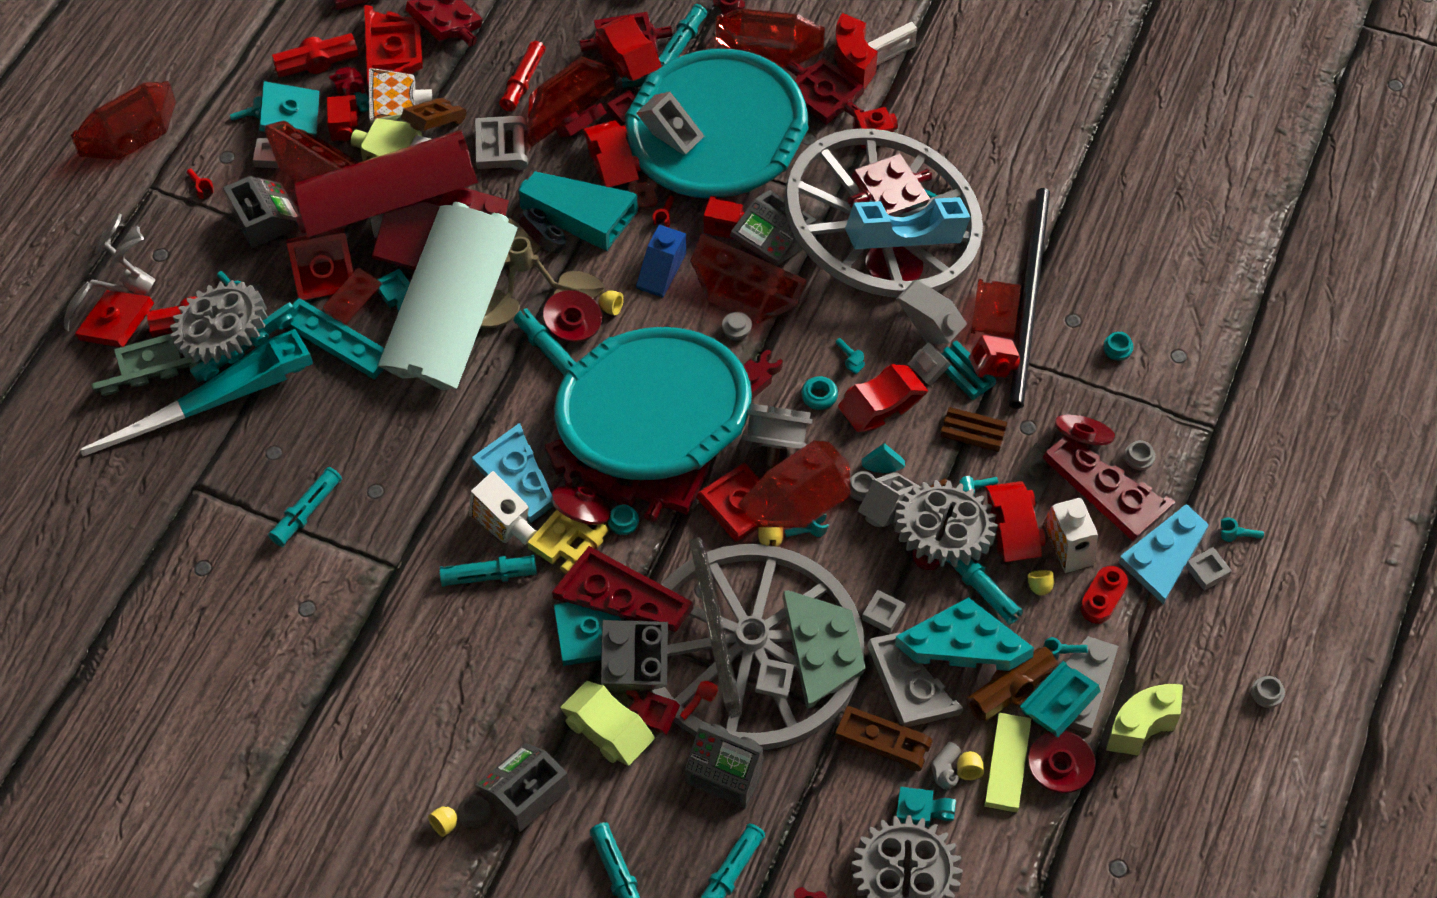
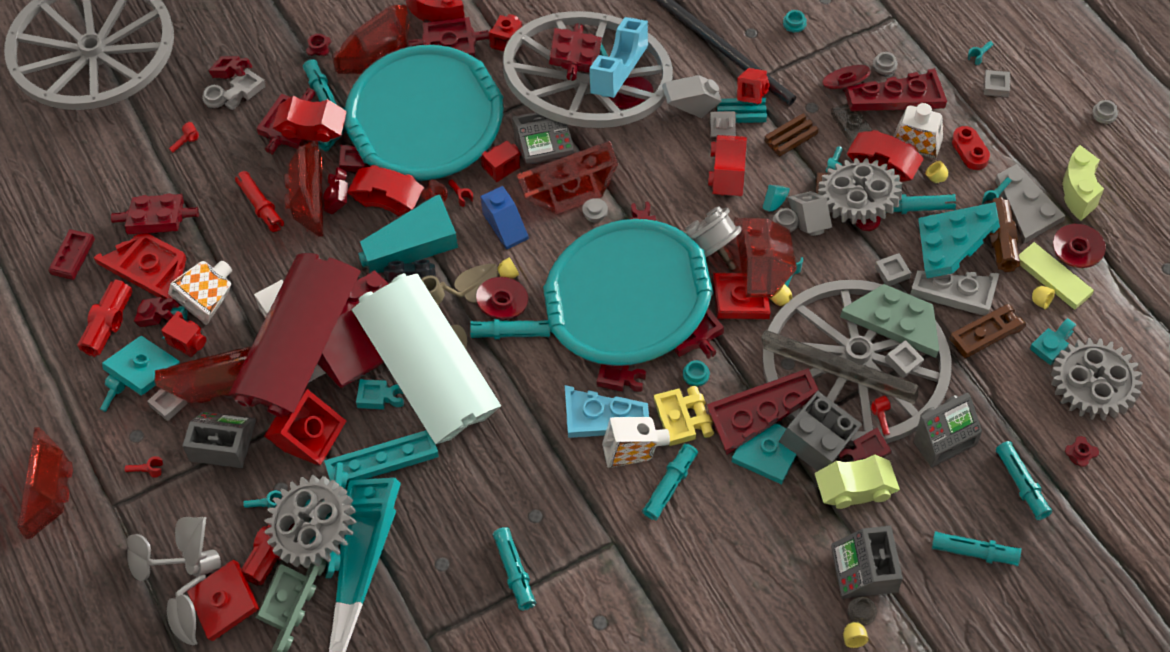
camera: 50 degrees left, 0 degrees up
(351, 296) = (357, 424): clear red hinge -> none
(383, 138) = (238, 320): yellowish green torso -> none
(433, 114) = (247, 273): reddish brown plate -> none
(491, 142) = (289, 246): light grey plate -> none
(581, 504) = (667, 388): dark red dish -> none
(608, 488) = (665, 364): dark red plate -> none
(670, 122) = (405, 133): light grey slope -> none
(822, 383) = (690, 206): teal piece -> none
(855, 358) = (682, 161): teal hand -> none
(942, 766) = (1032, 313): light grey arm -> none
(996, 309) = (711, 62): clear red plate -> none
(1060, 699) = (1038, 214): teal plate -> none
(1165, 551) = (965, 98): medium azure wing -> none

